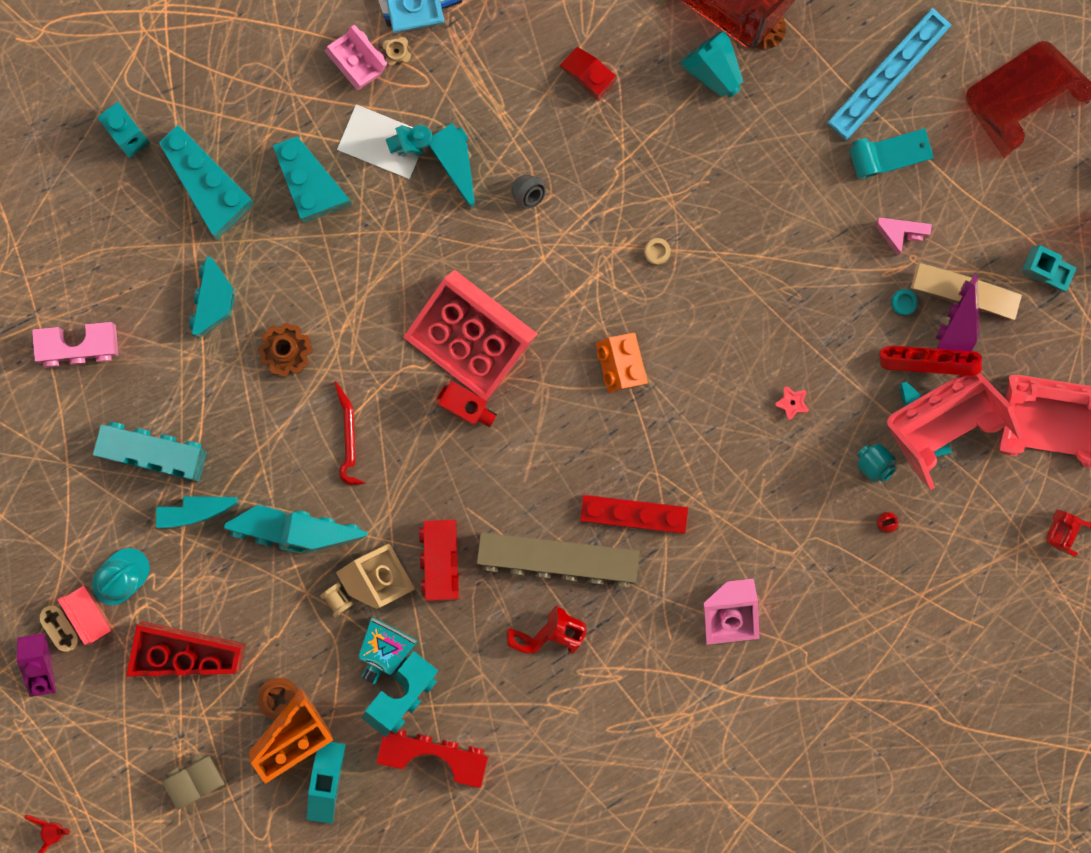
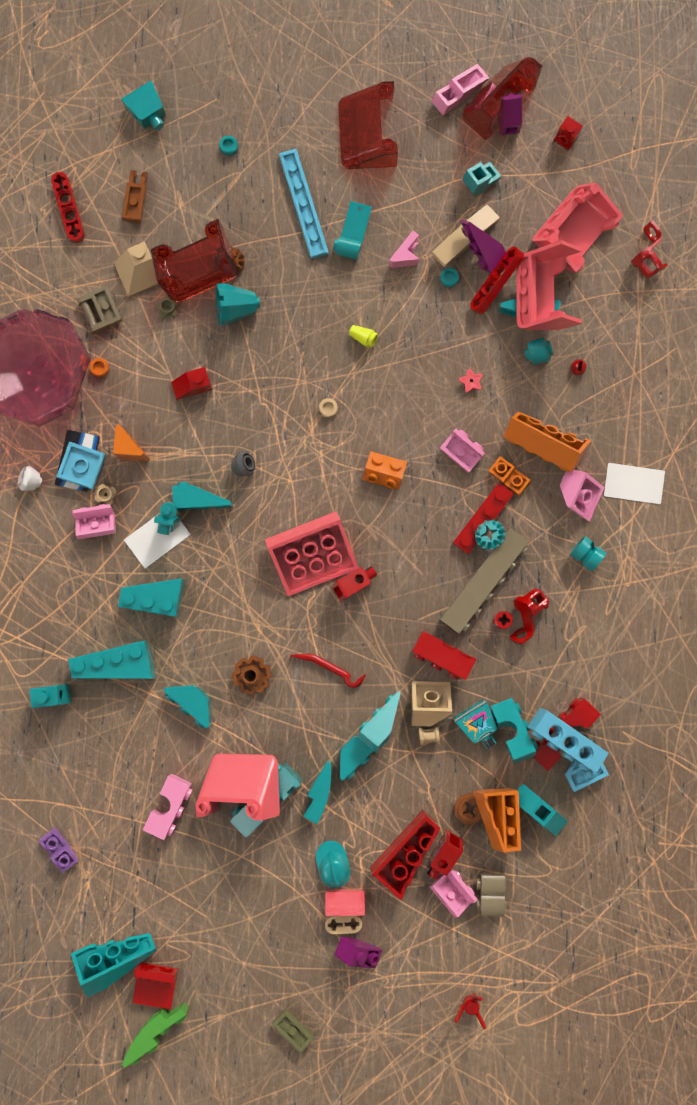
camera: 60 degrees left, 0 degrees up
(156, 407) = (241, 780): none -> coral windscreen
(170, 735) = (453, 892): none -> bright pink bracket
(214, 699) = (445, 854): none -> red torso
(407, 809) = (579, 778): none -> medium azure wing
(424, 805) = (593, 755): none -> medium azure brick
(467, 42) = (126, 448): none -> orange slope
(517, 604) = (507, 615): none -> red bush
(617, 542) = (497, 537): none -> teal gear
(664, 663) = (587, 553): none -> teal wheel
(699, 441) = (462, 450): none -> bright pink bracket
(704, 516) = (509, 476): none -> orange slope
(770, 244) = (364, 336): none -> neon yellow cone
(770, 535) = (546, 441): none -> orange wedge
(785, 672) = (634, 483): none -> white sticker

